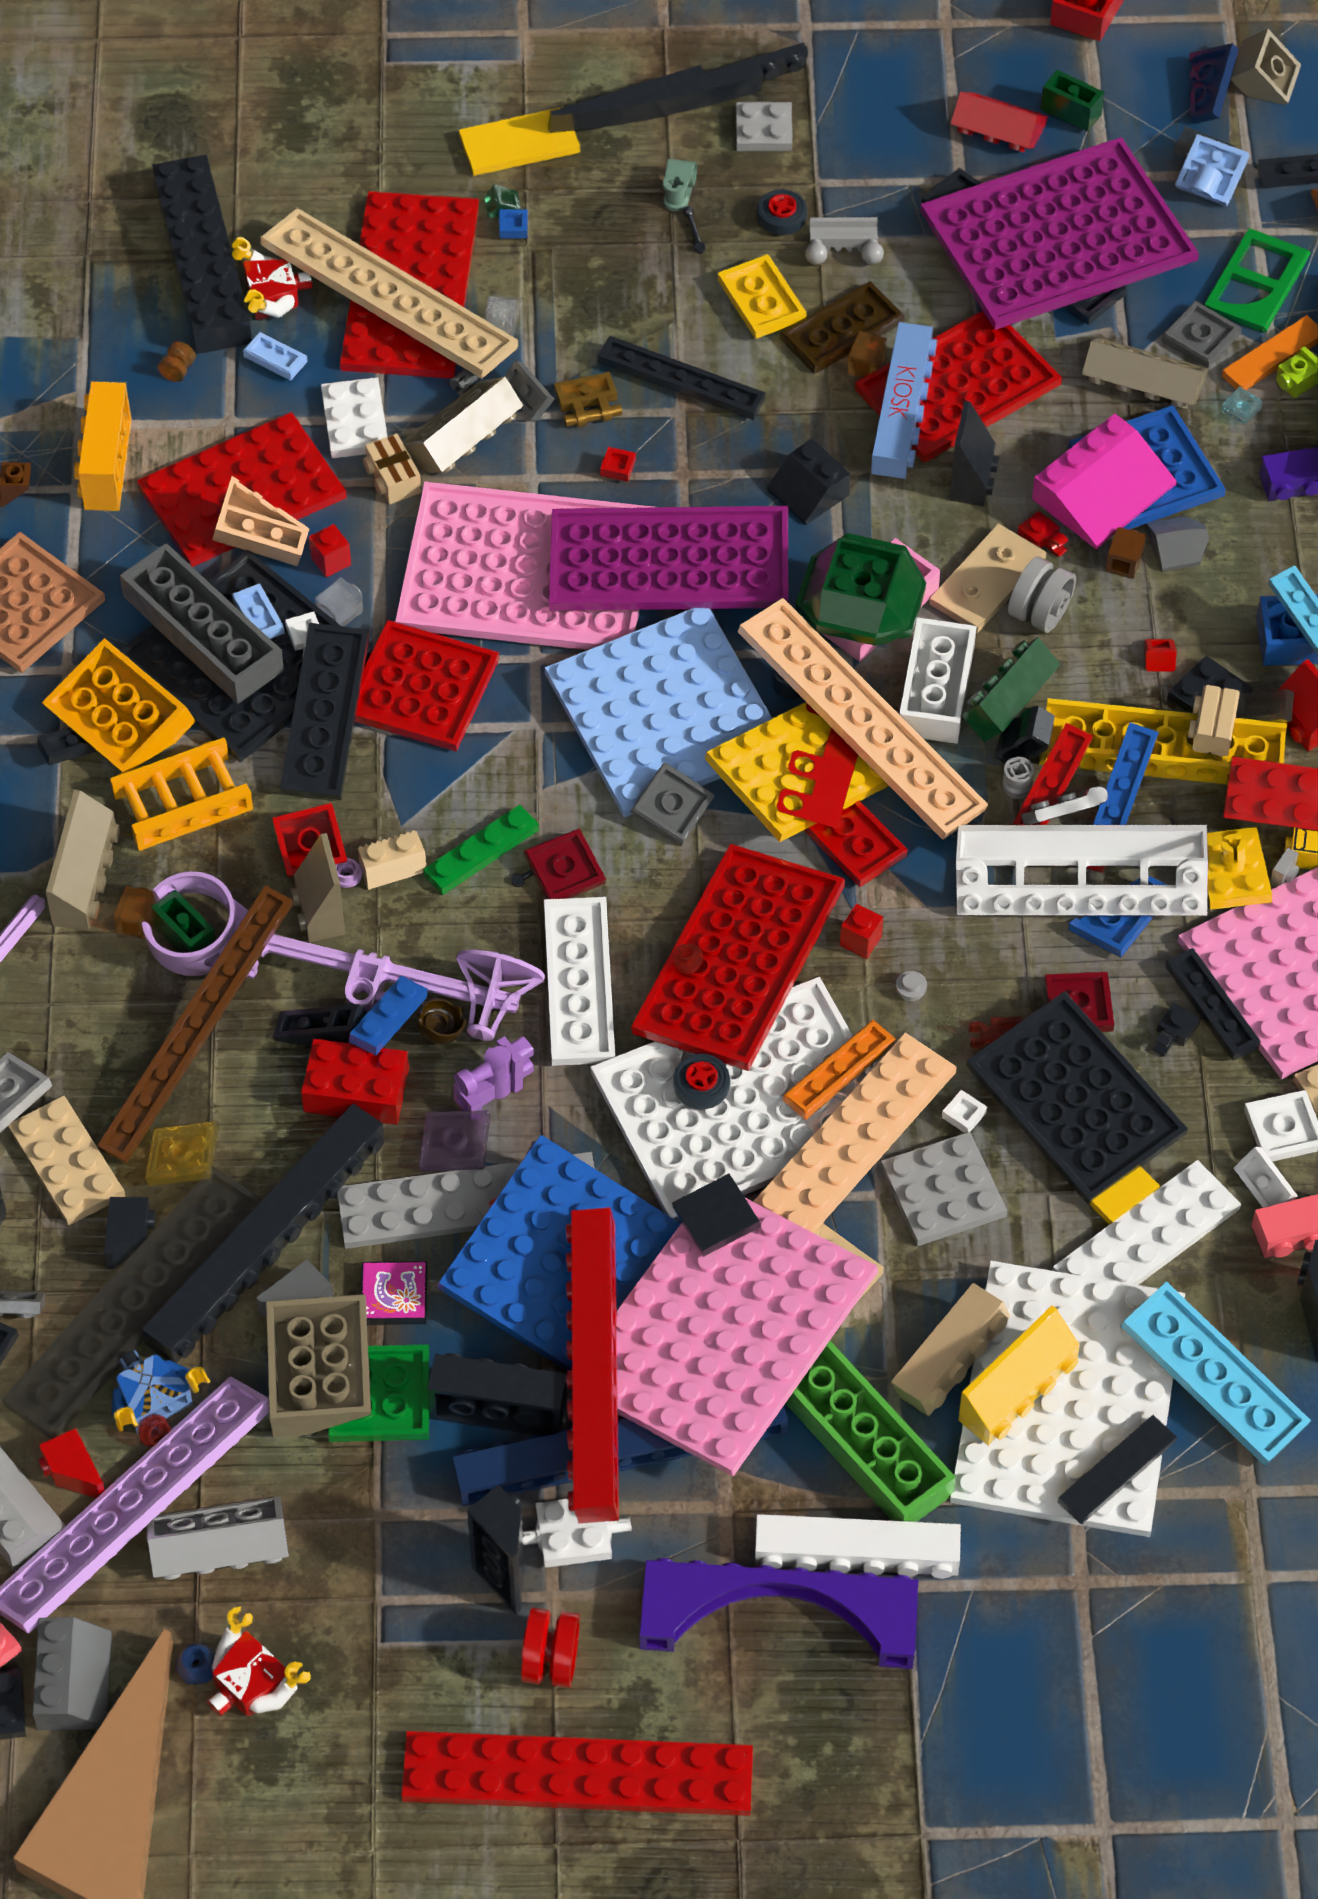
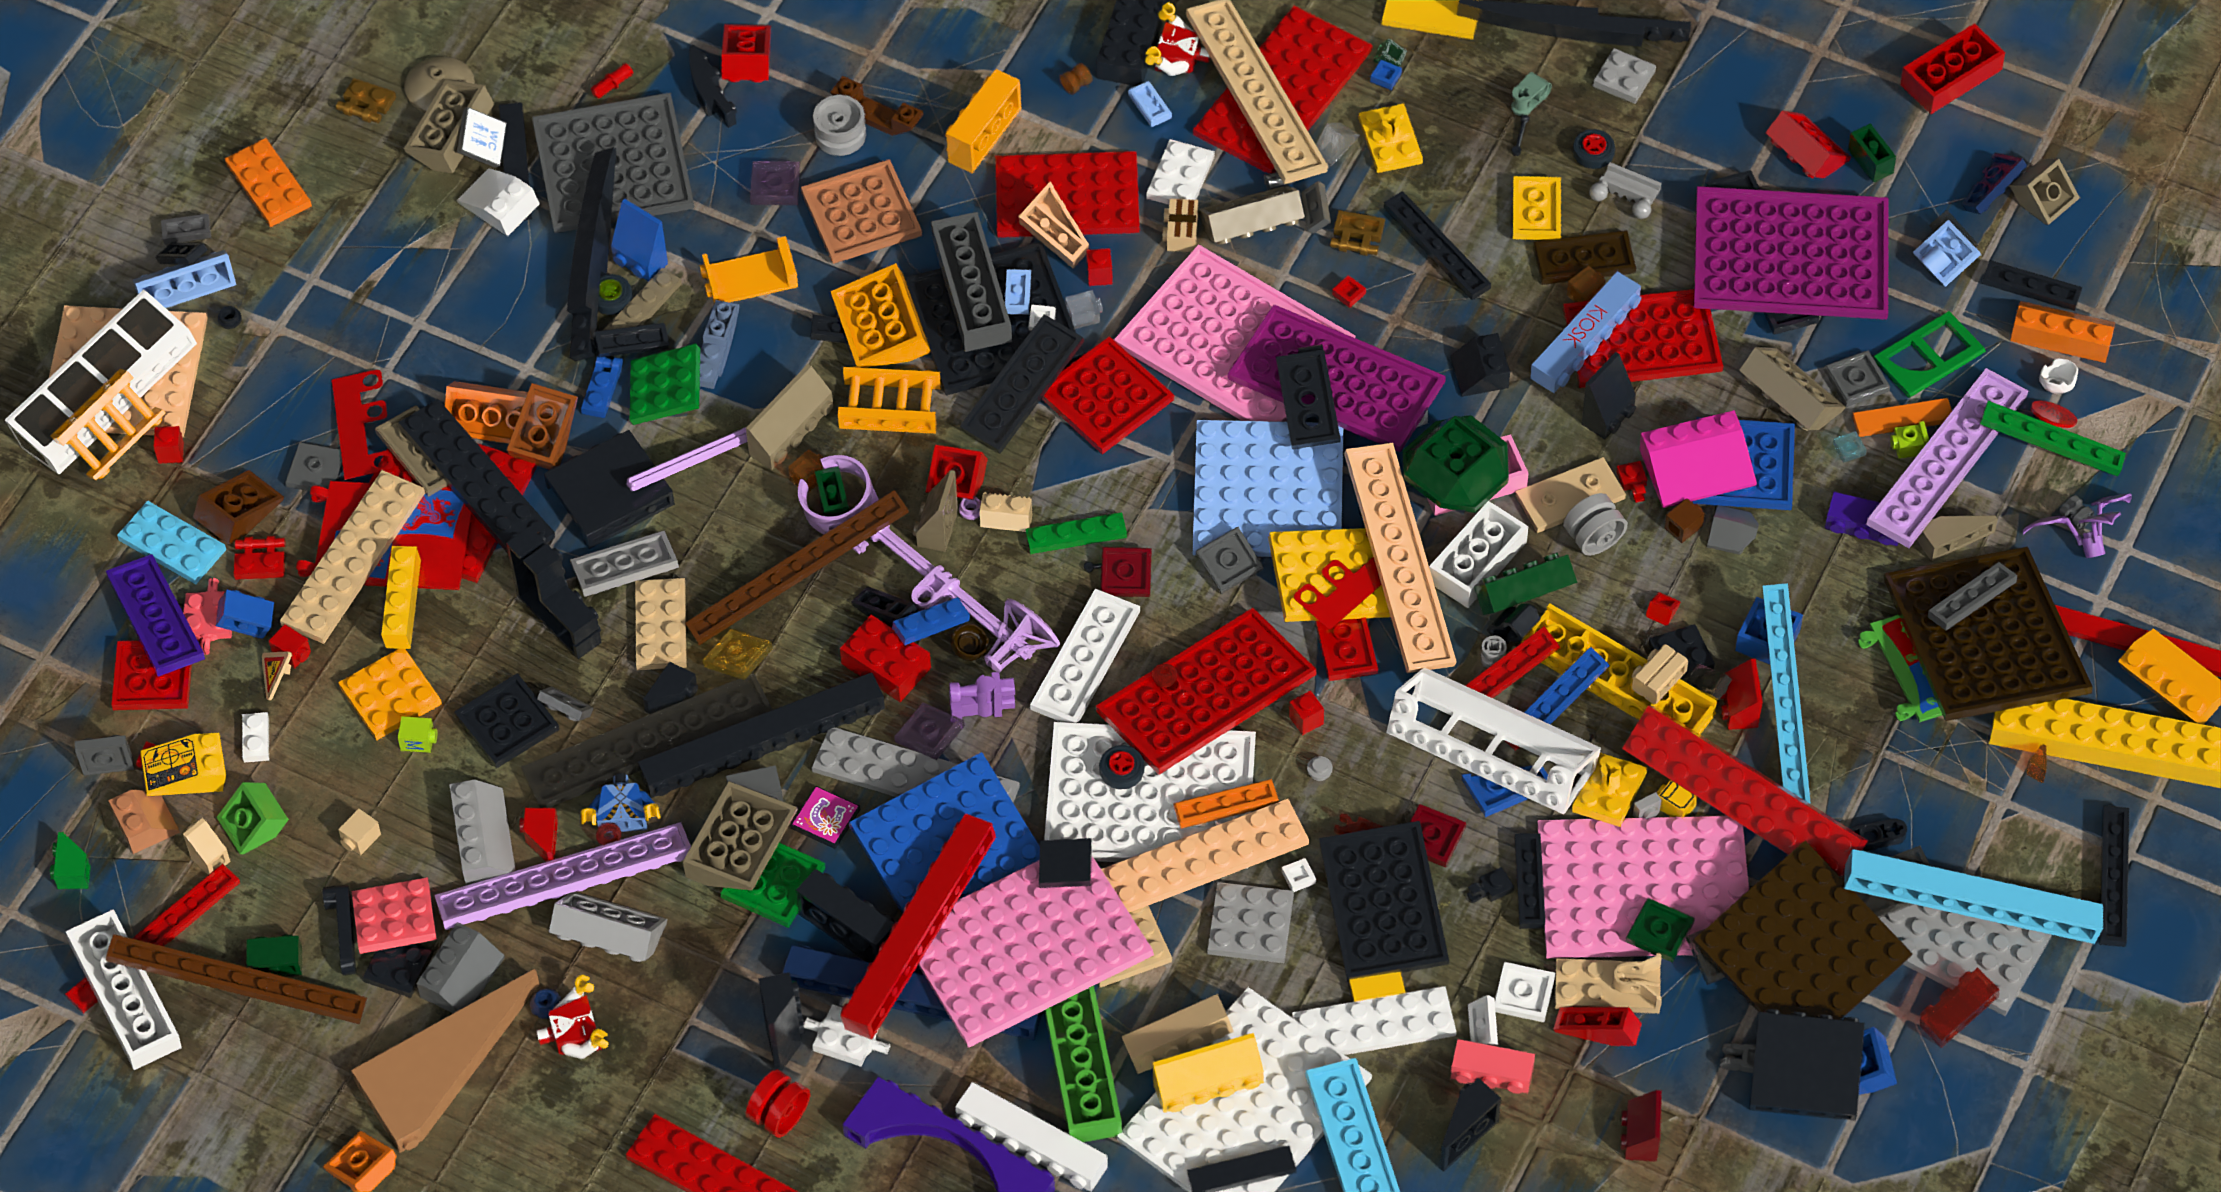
camera: 30 degrees right, 0 degrees up
(558, 287) = (1390, 138): none -> yellow plate
(639, 567) = (1308, 375): none -> black hinge
(1066, 804) = (1511, 687): hinge -> none

